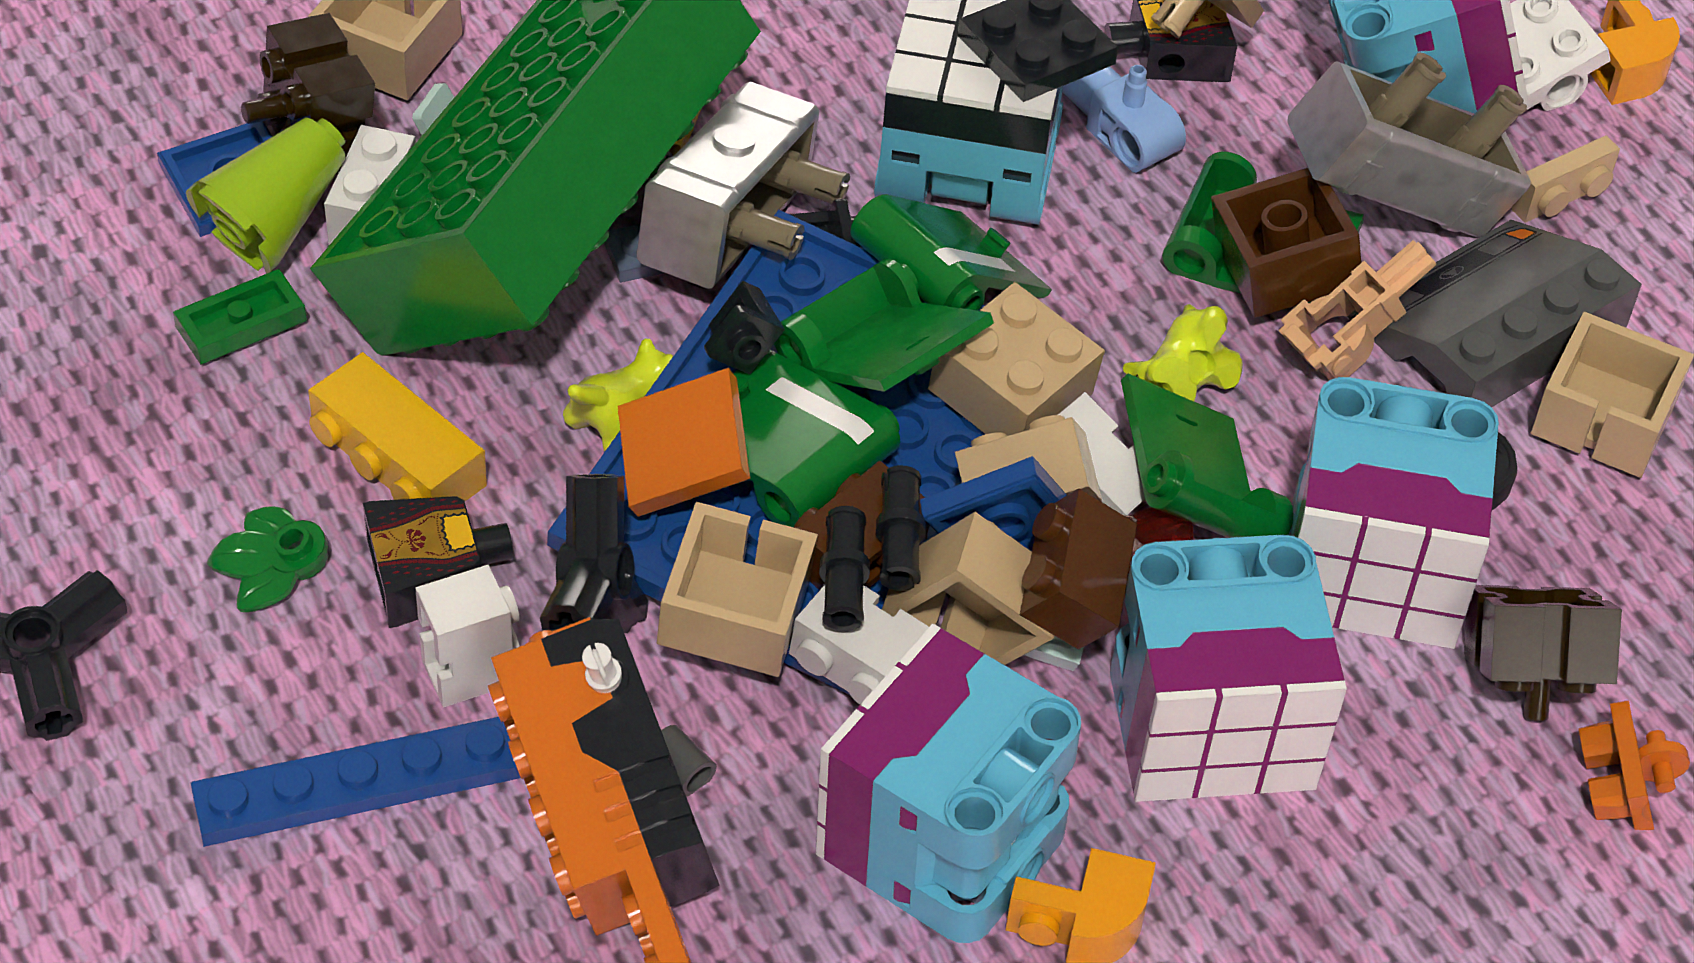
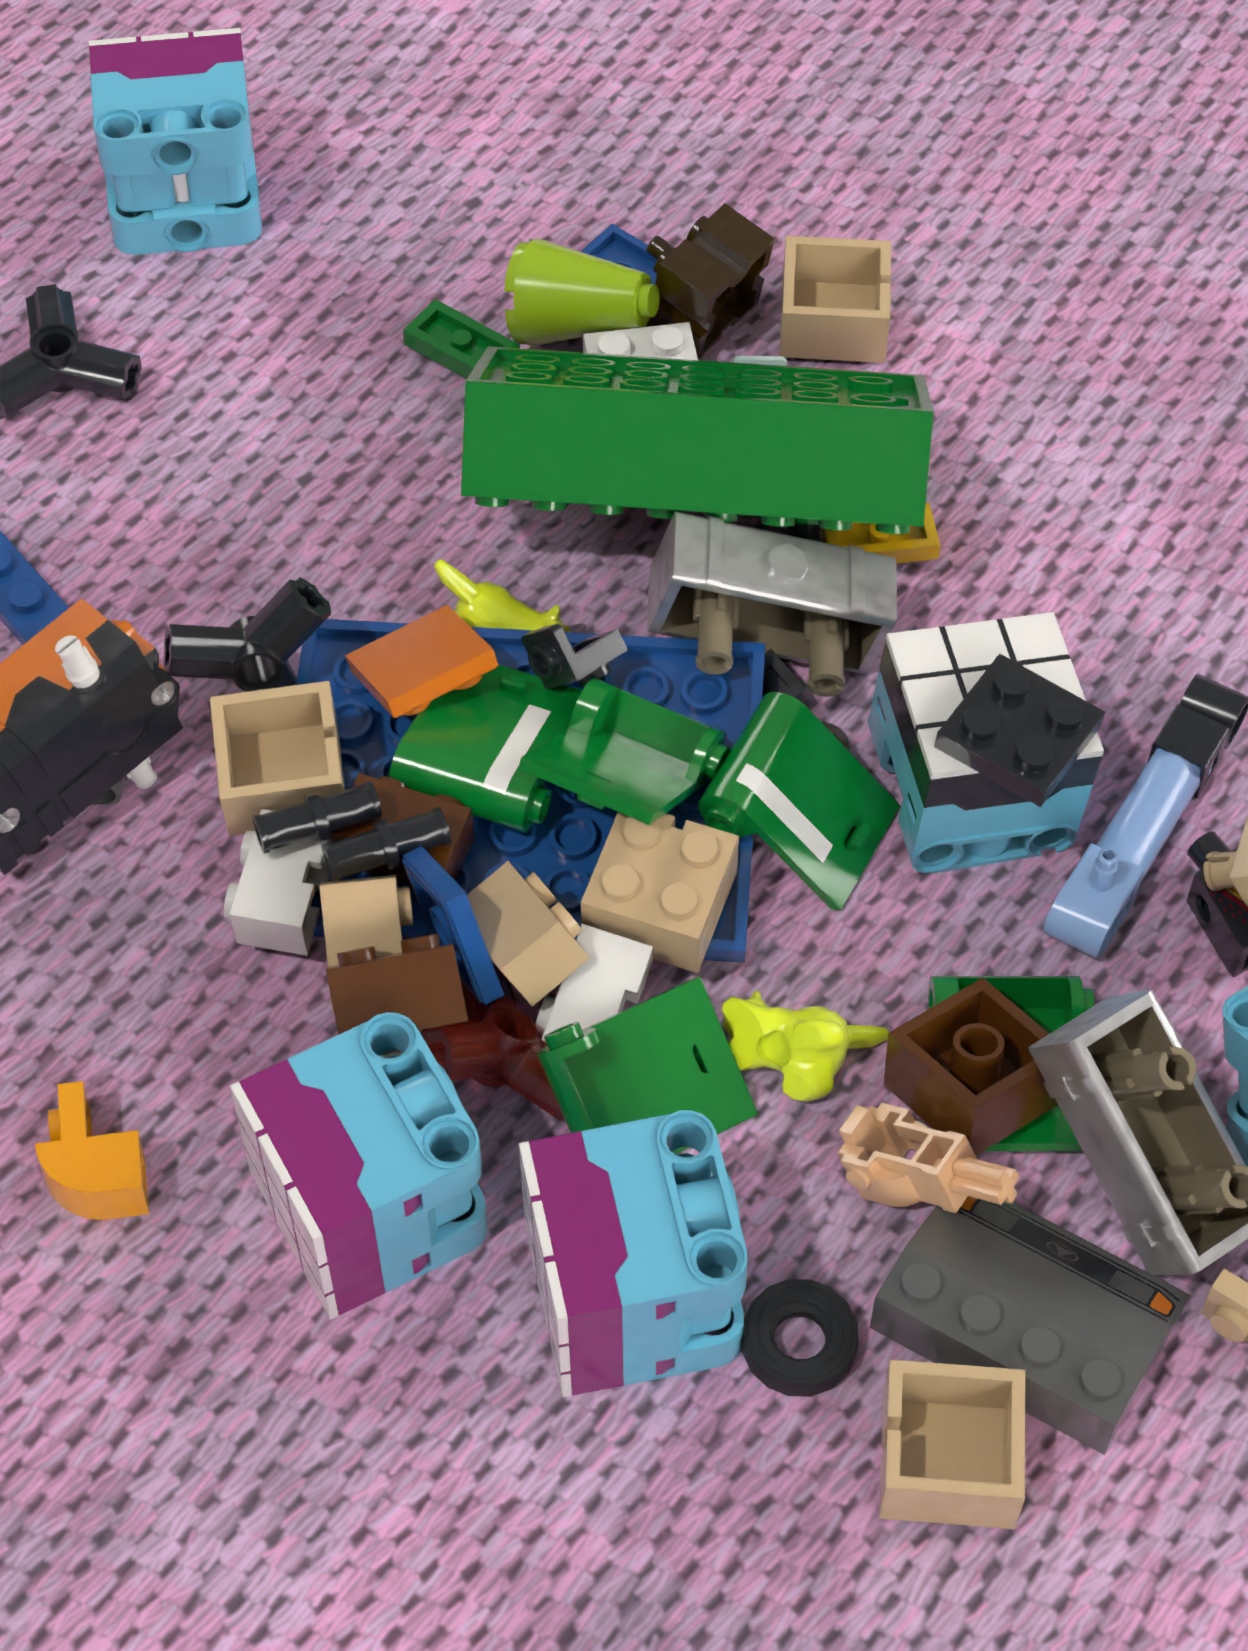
camera: 70 degrees right, 5 degrees up
(270, 556) = (224, 463): green plate -> none
(394, 434) = (376, 491): yellow brick -> none
(425, 542) = (256, 552): torso -> none
(468, 626) = (164, 591): white brick -> none
(691, 762) = (134, 808): dark grey hinge -> none
(948, 785) = (136, 985): medium azure piece -> none
(1540, 637) = (562, 1447): dark brown brick -> none
(1626, 792) = (461, 1594): orange hips -> none

